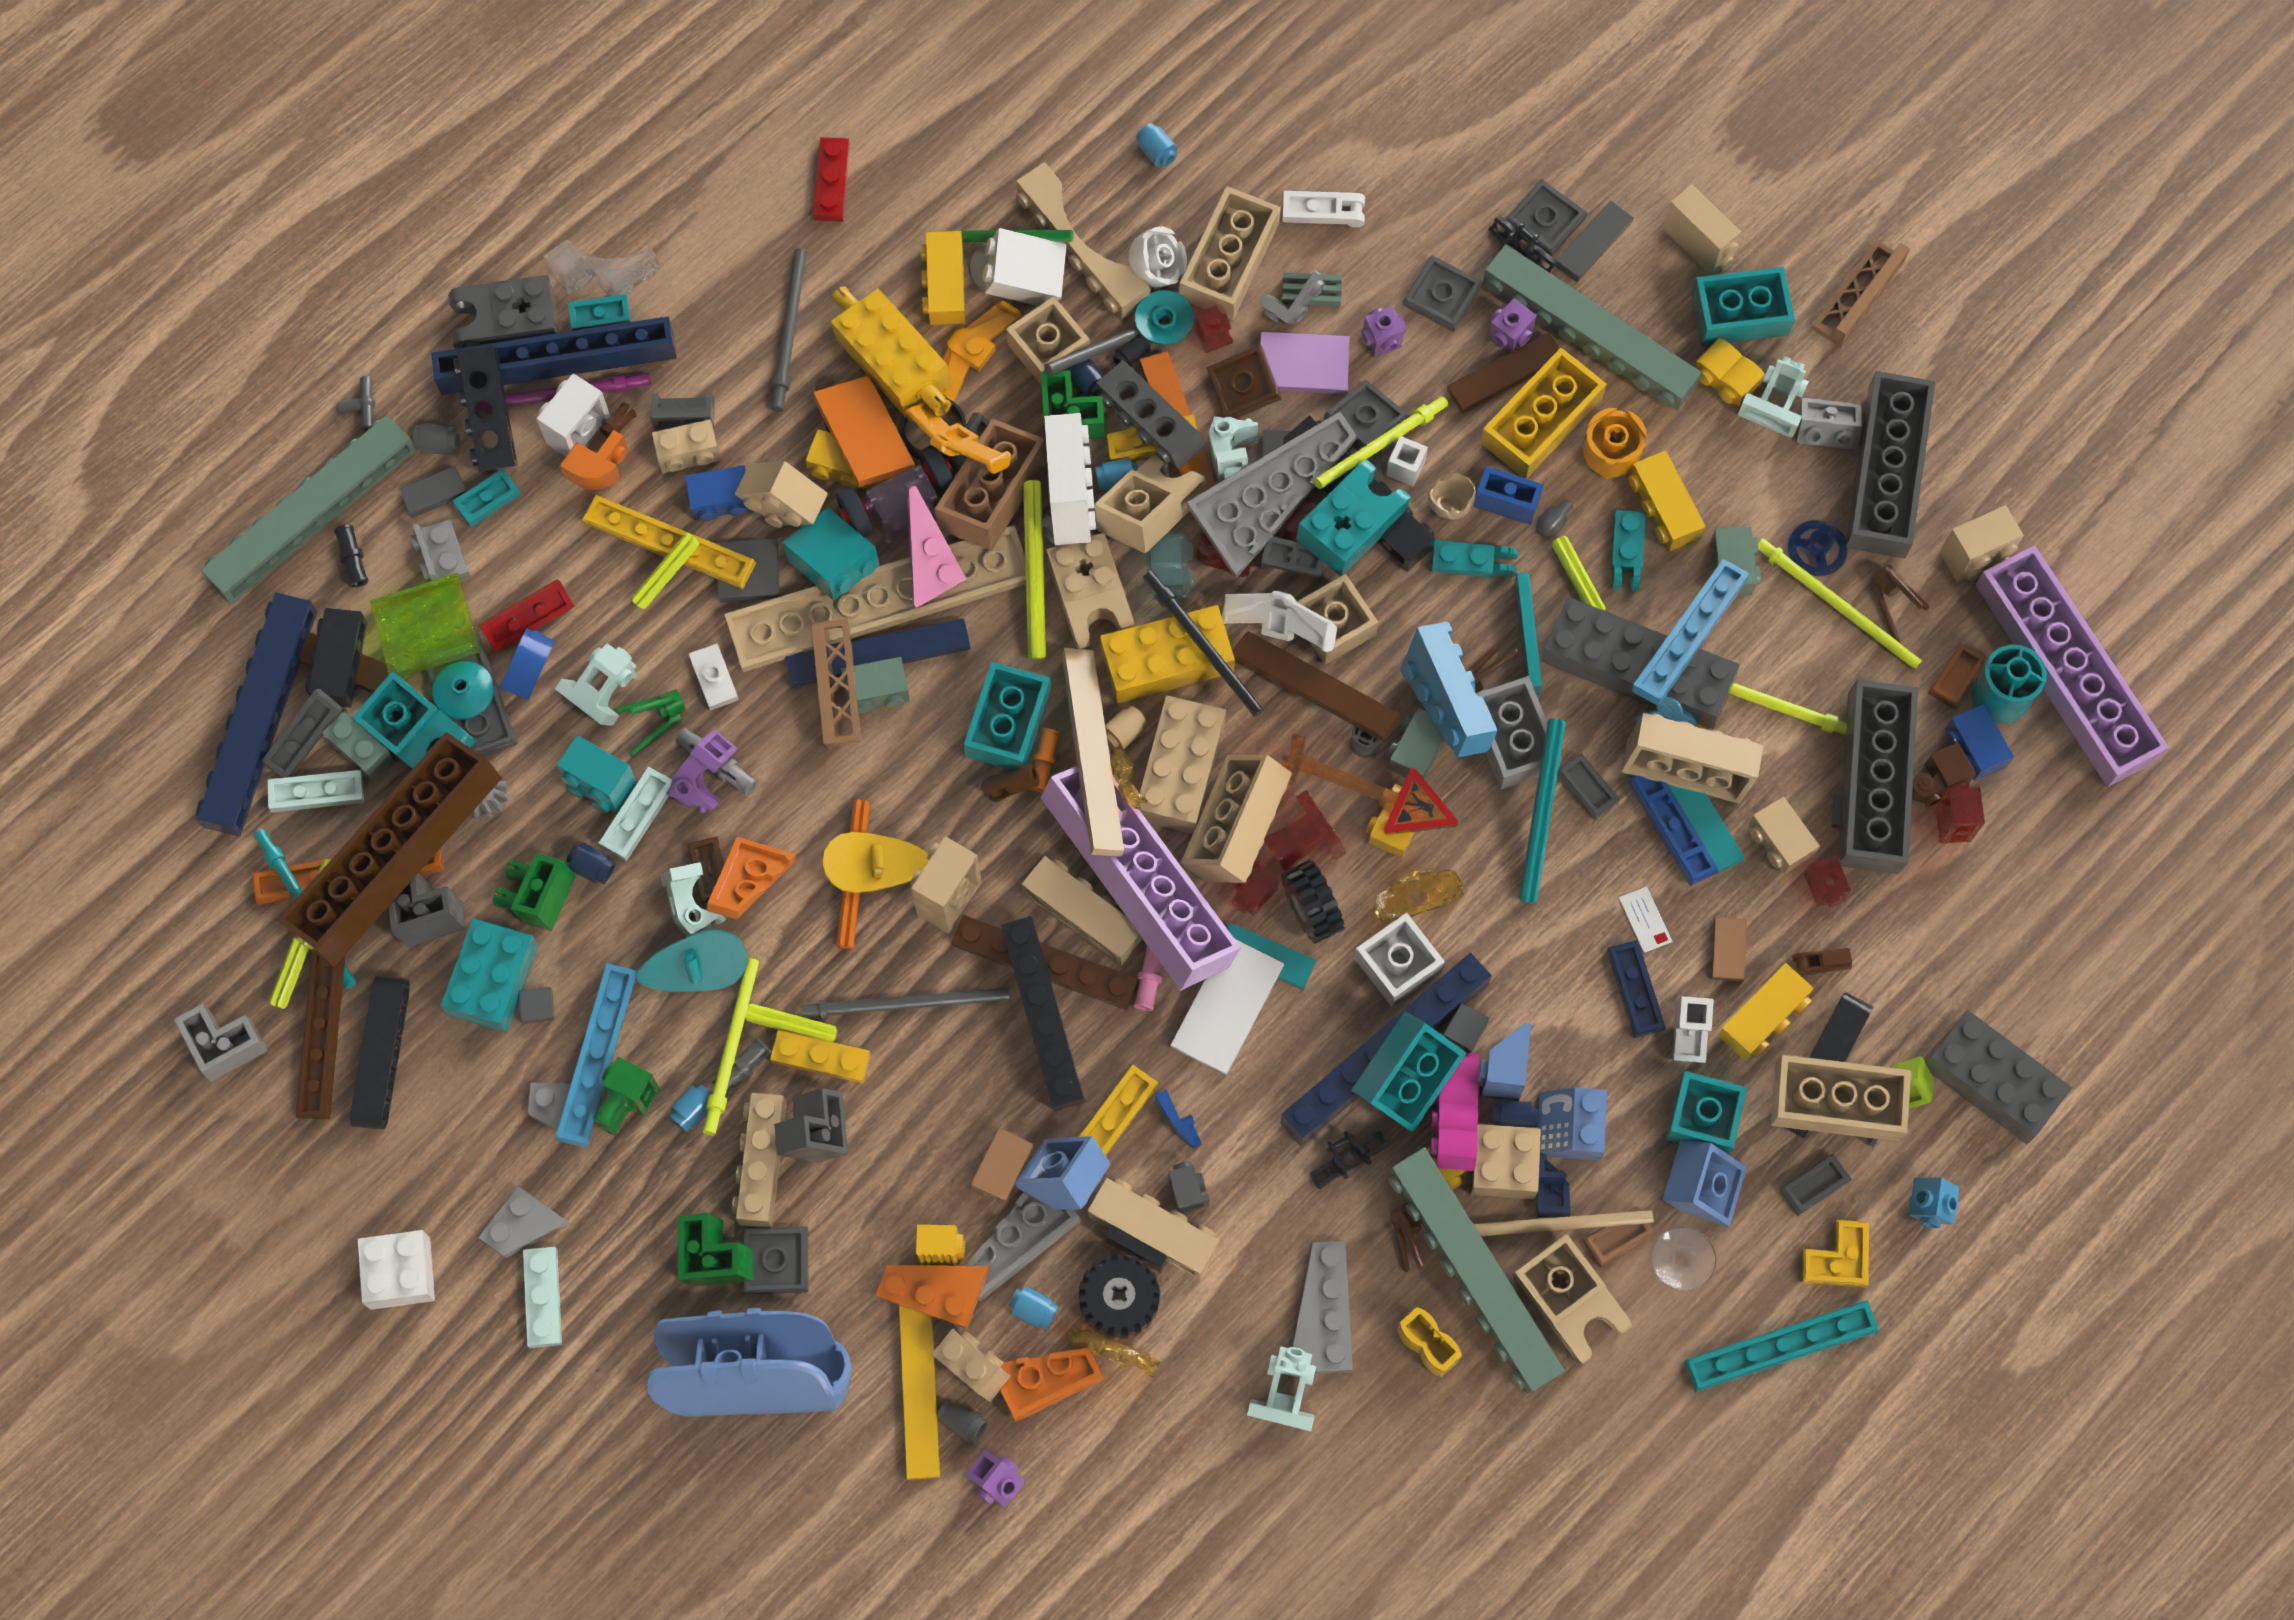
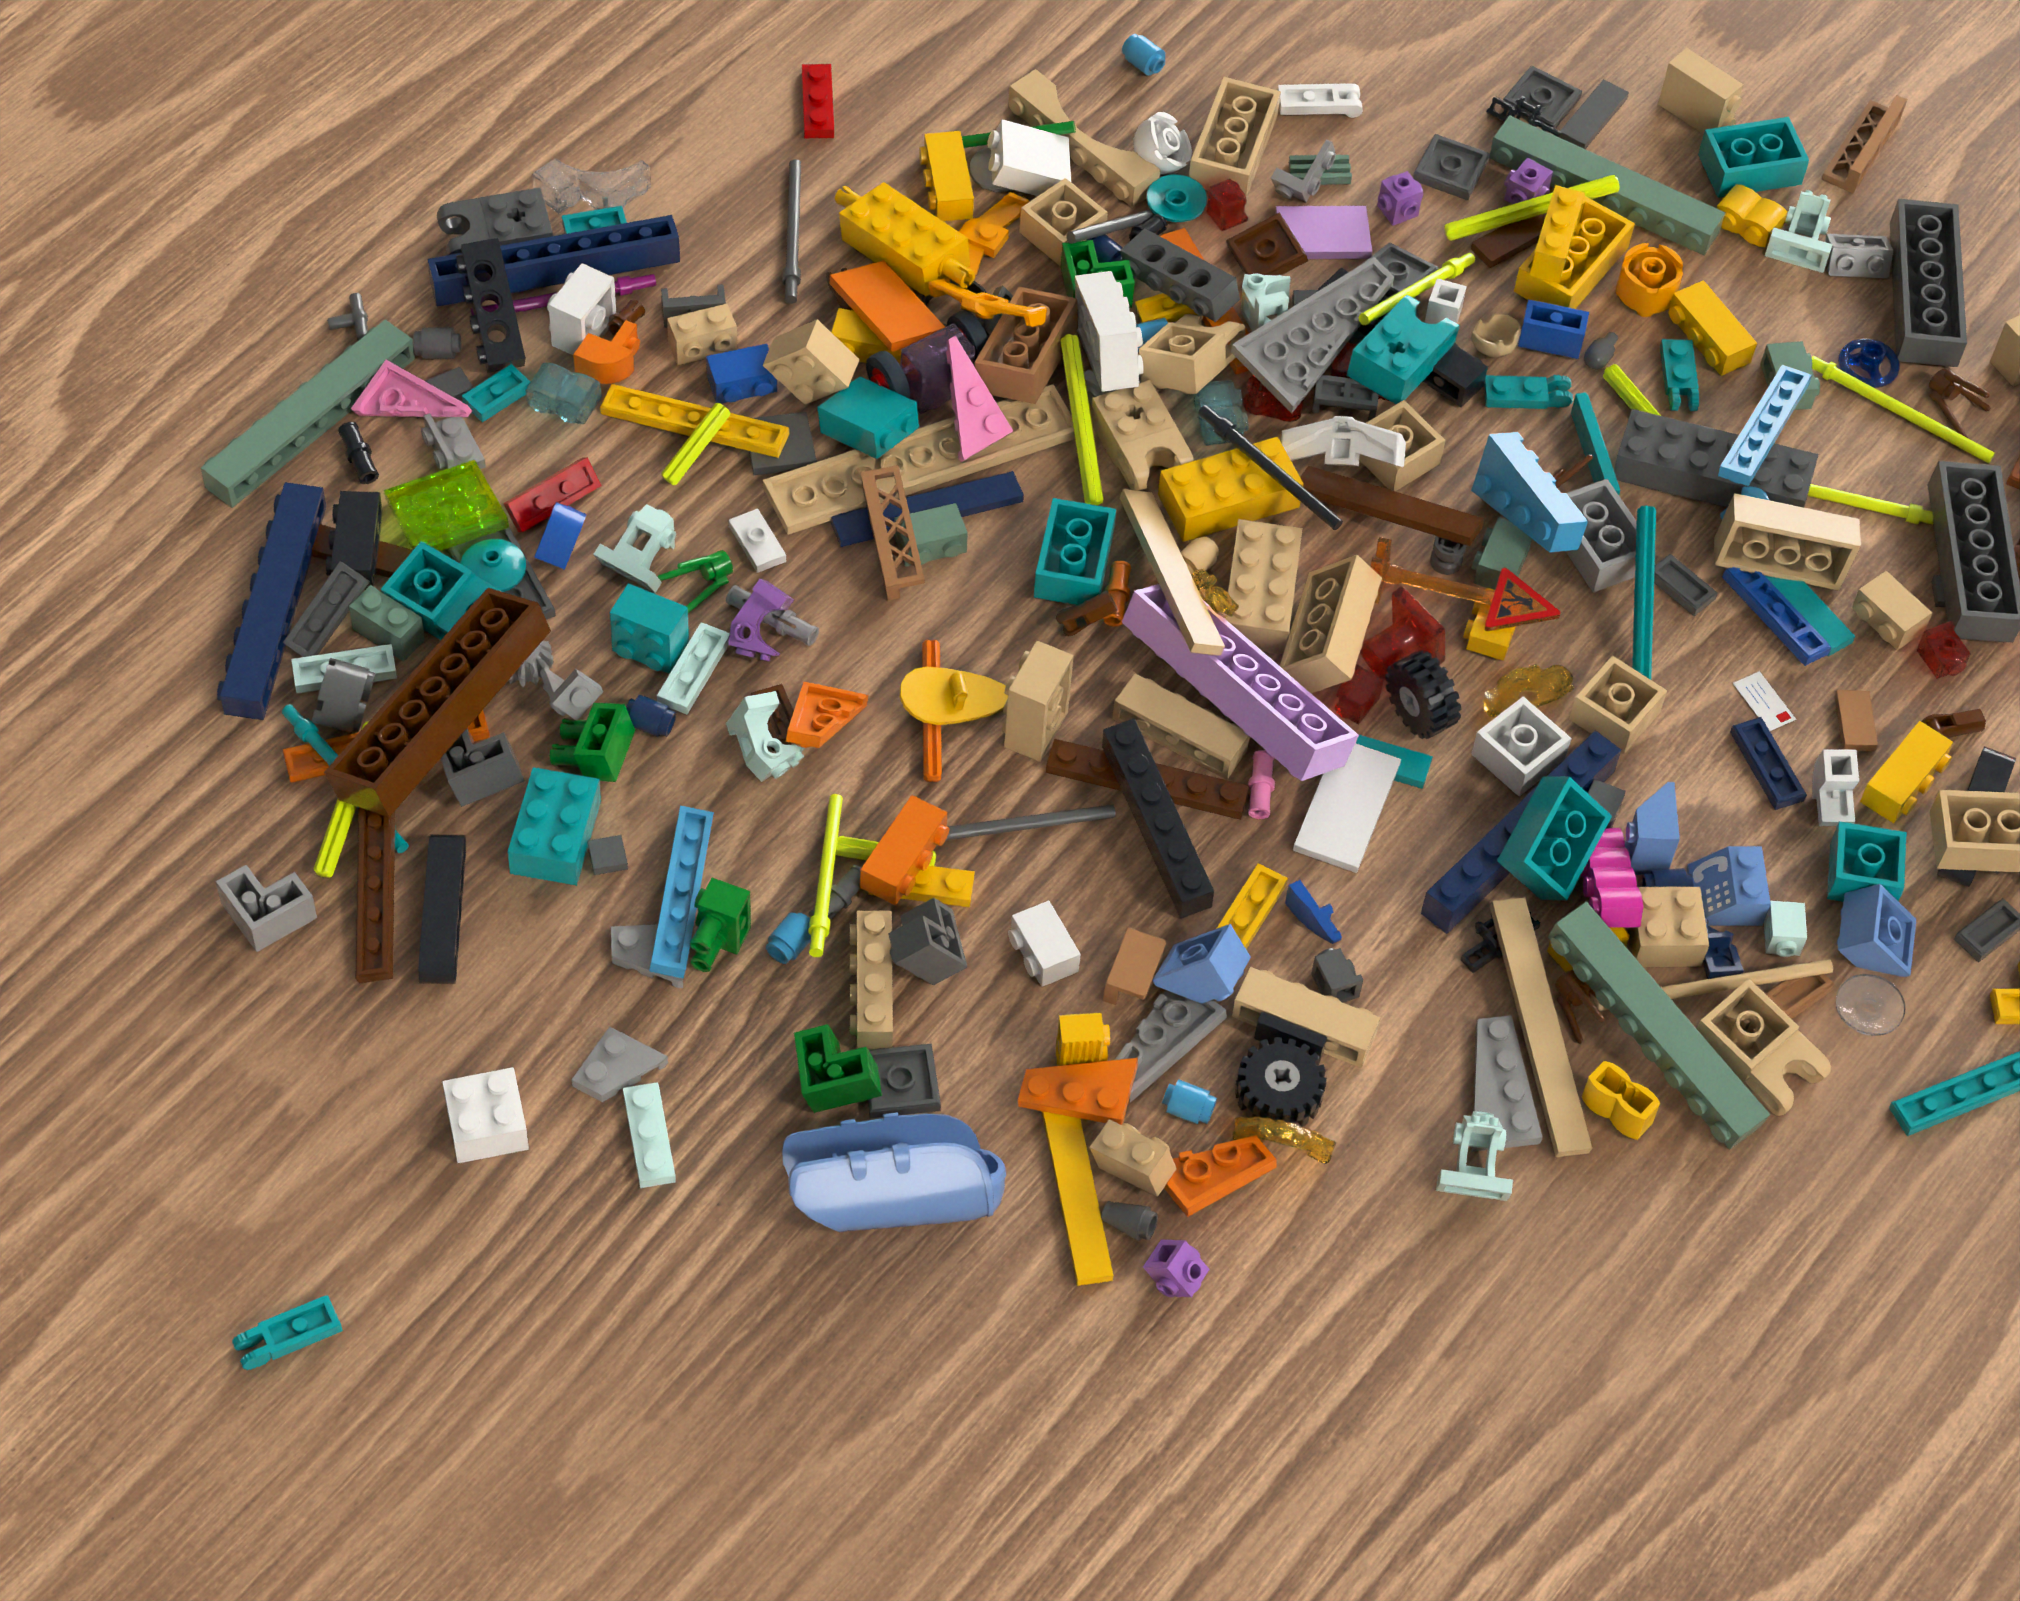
camera: 10 degrees left, 15 degrees down
(206, 1468) = (288, 1332): none -> teal hinge
(307, 828) = (341, 696): none -> dark grey brick
(395, 497) = (405, 395): none -> bright pink wing
(513, 840) = (570, 695): none -> light grey bracket
(548, 504) = (563, 393): none -> clear light blue brick
(696, 963) = (777, 800): teal shield -> none
(804, 1031) = (904, 850): none -> orange brick
(923, 1133) = (1044, 944): none -> white brick
(1369, 1257) = (1540, 1027): none -> tan tile
(1499, 921) = (1618, 704): none -> tan brick
(1510, 353) = (1524, 209): none -> neon yellow axle
(1523, 398) = (1557, 234): none -> yellow brick
(1617, 1172) = (1785, 928): none -> light aqua brick

